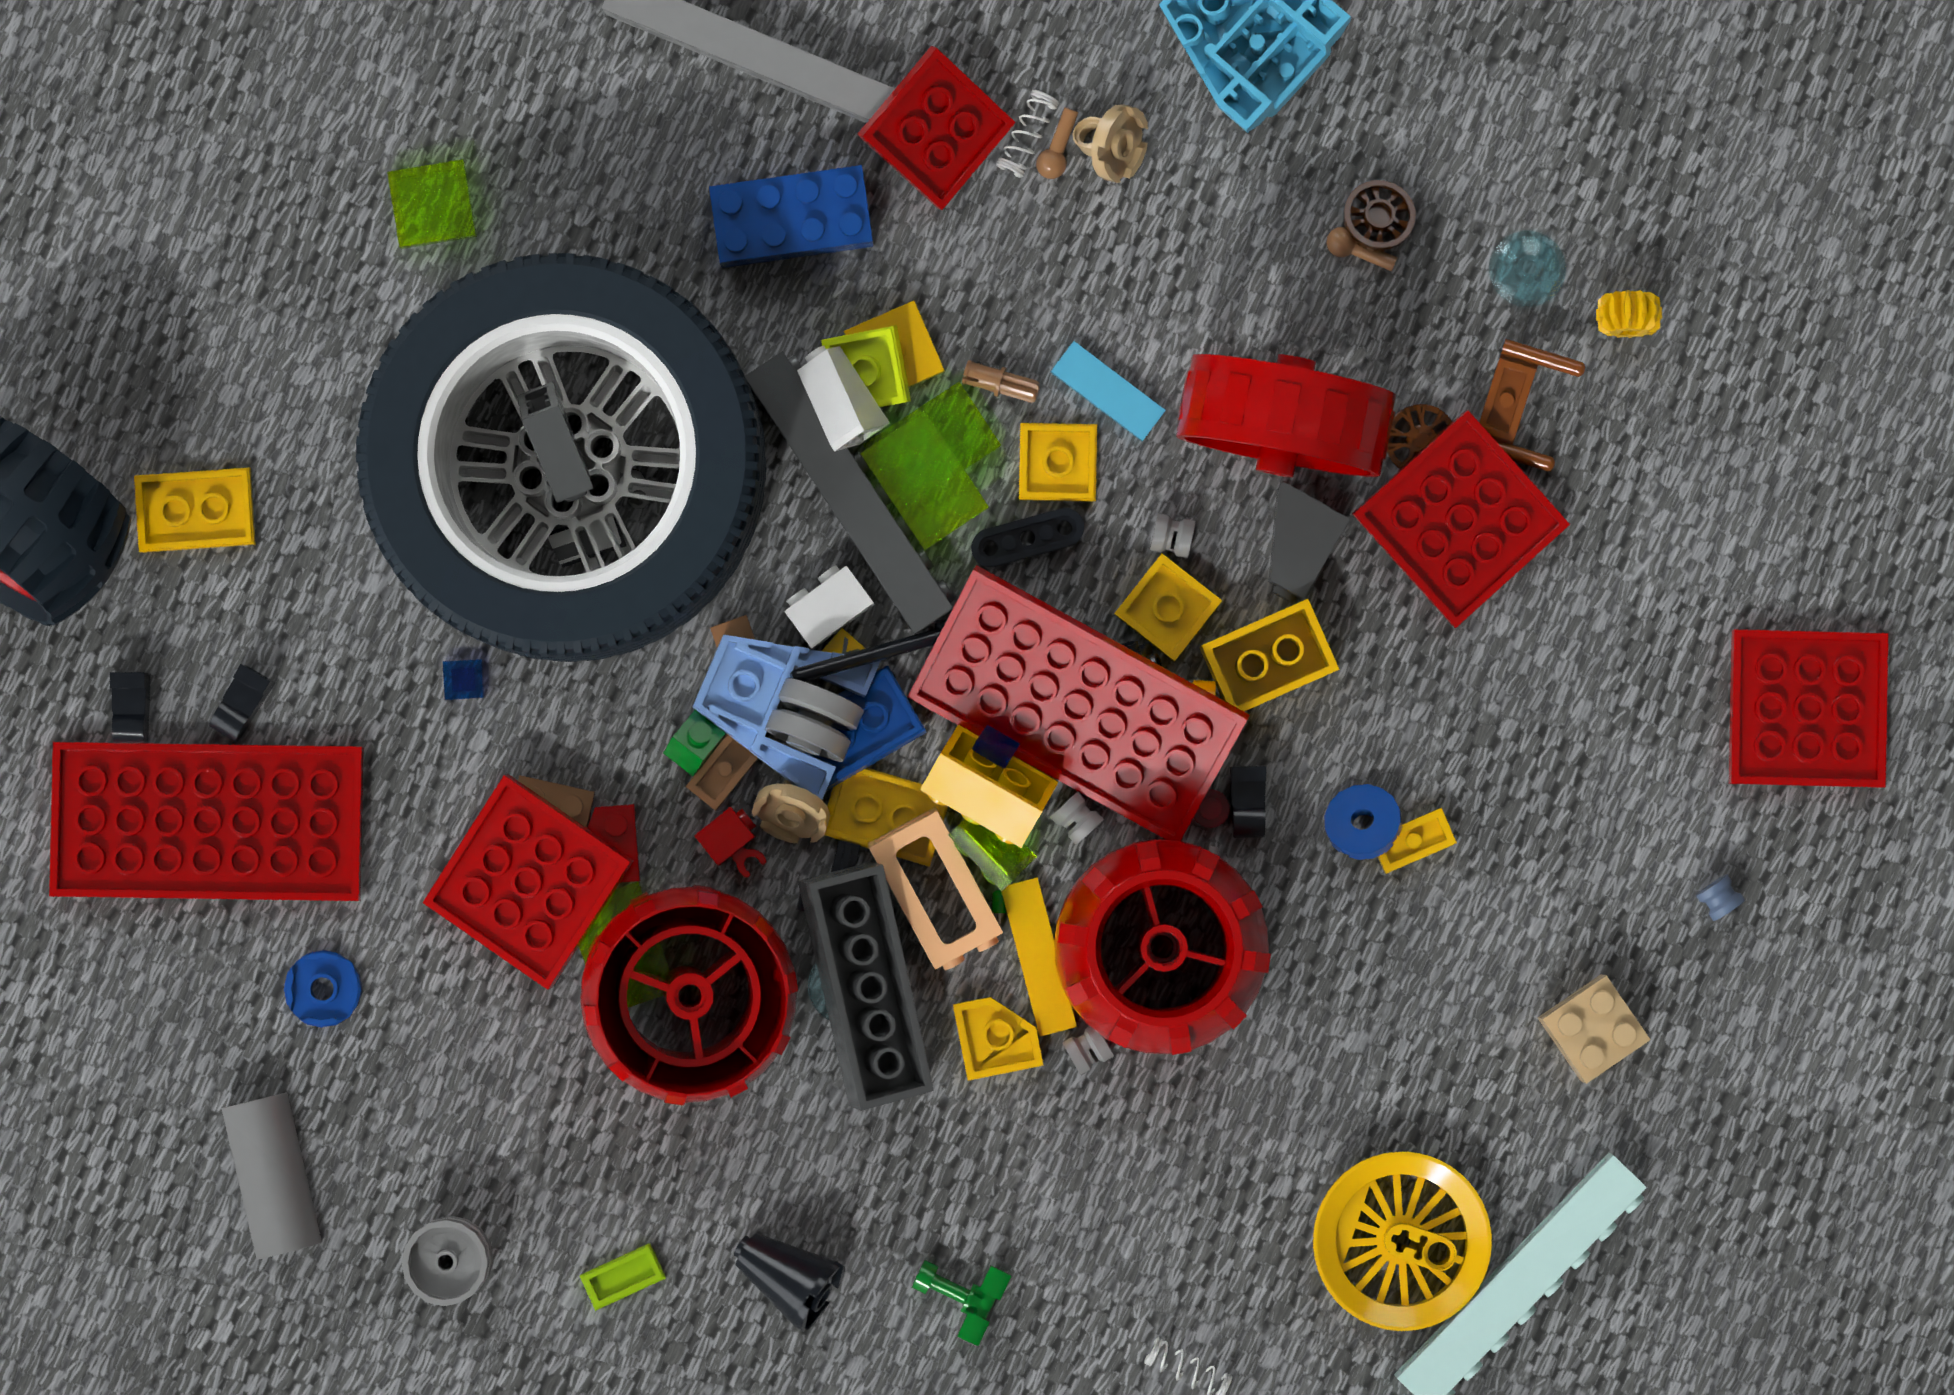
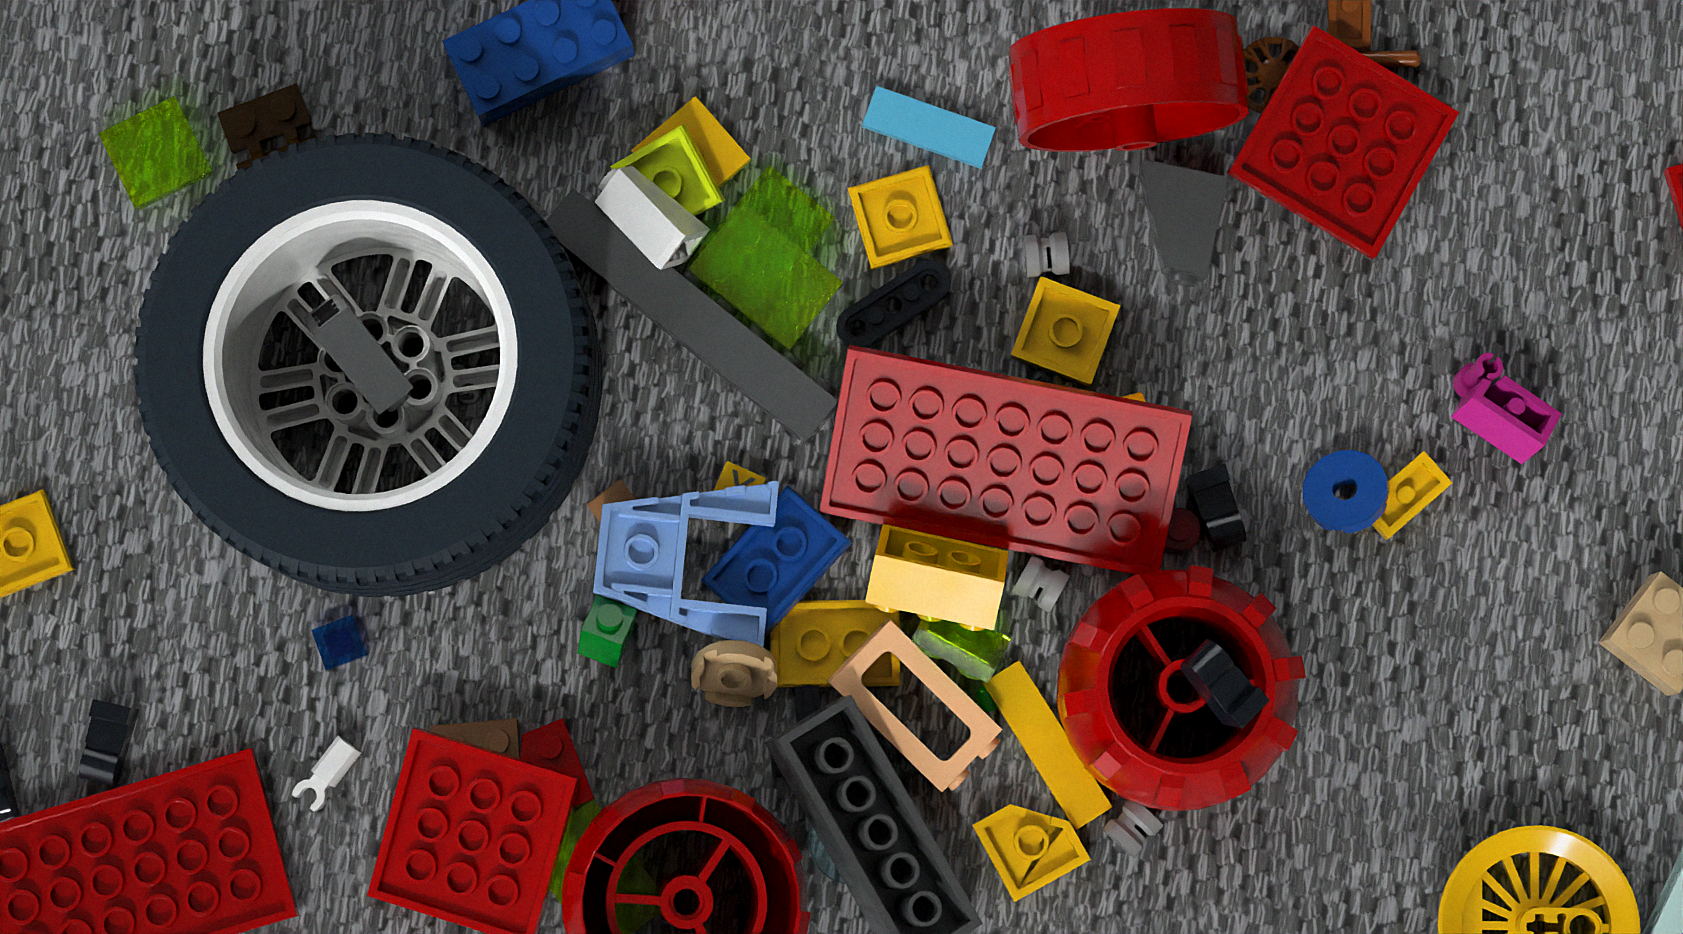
camera: 15 degrees left, 5 degrees down
(422, 786) = (328, 771): none -> white bar
(535, 203) = (264, 120): none -> dark brown plate
(565, 547) = (405, 467): slope -> none
(721, 772) = (646, 653): medium nougat plate -> none
(728, 836) = (674, 722): red brick -> none
(812, 724) = (728, 563): light grey wheel -> none
(828, 606) = (705, 441): white brick -> none
(868, 655) = (762, 480): black bar -> none
(995, 746) = (931, 533): clear blue tile -> none
(1000, 382) = (813, 151): medium nougat axle -> none
(1194, 959) = (1223, 685): none -> black leg
(1269, 657) = (1191, 346): yellow brick -> none
(1519, 795) = (1502, 413): none -> dark pink hinge

